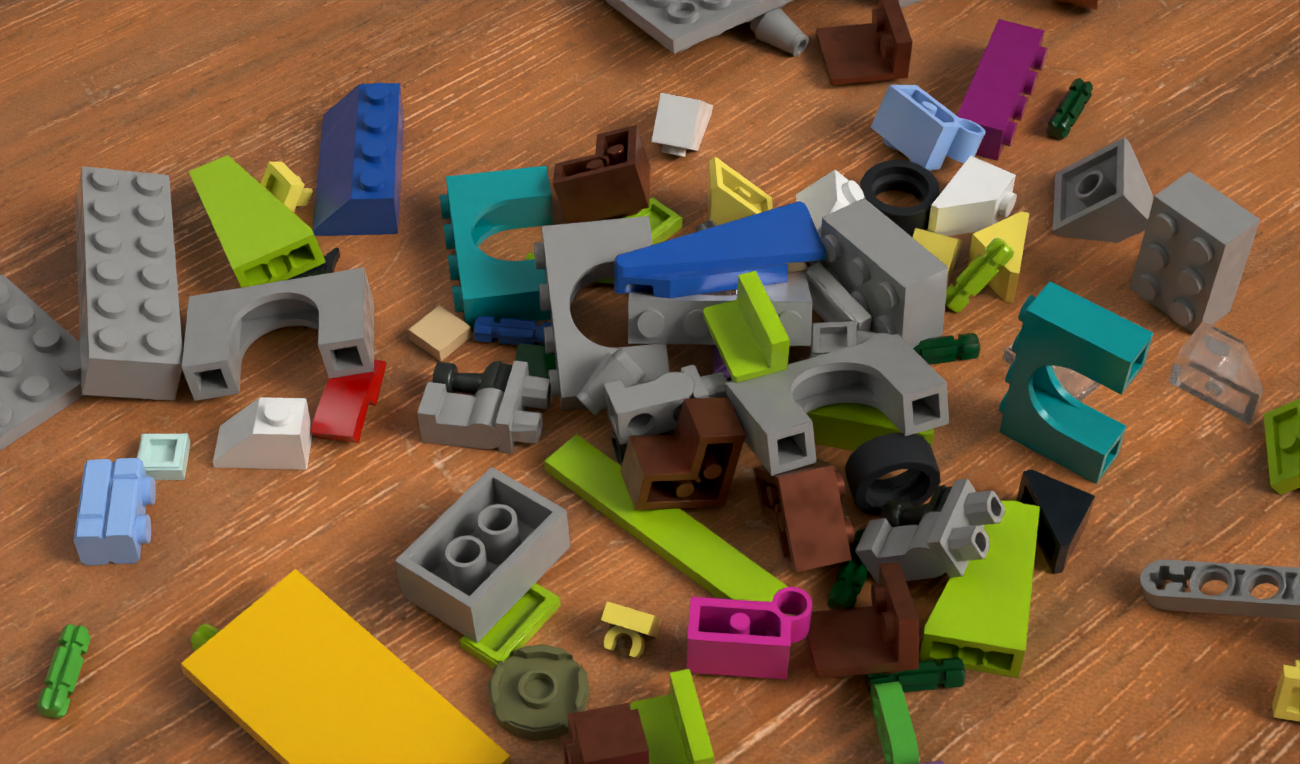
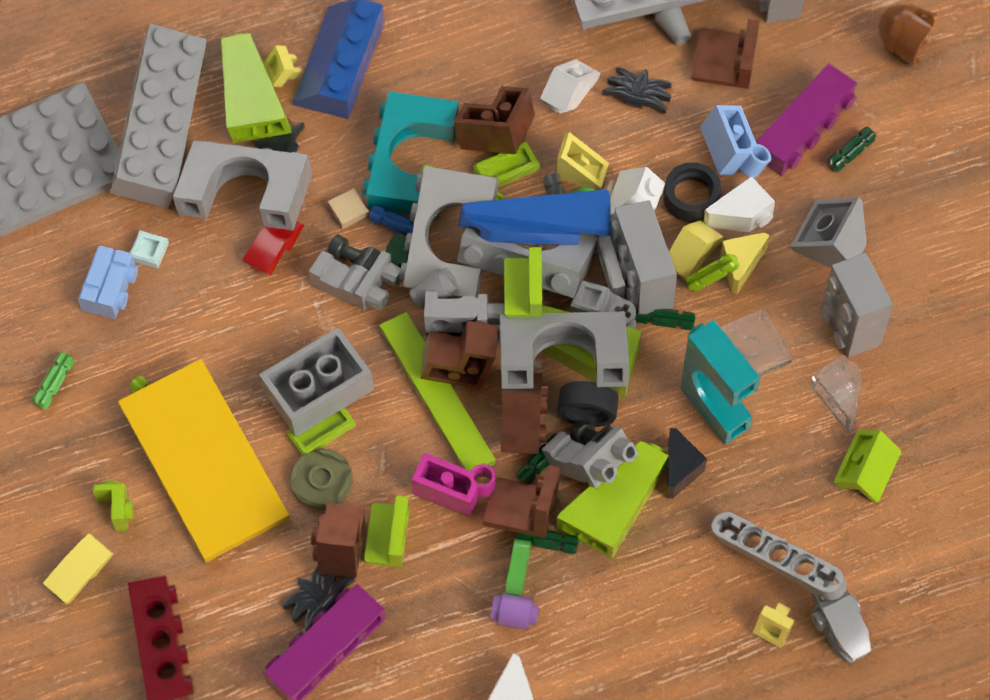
camera: 20 degrees right, 15 degrees up
(266, 436) = (214, 256): white slope -> none
(629, 622) = (389, 451): light yellow tile -> none
(770, 111) = (638, 90): none -> black piece

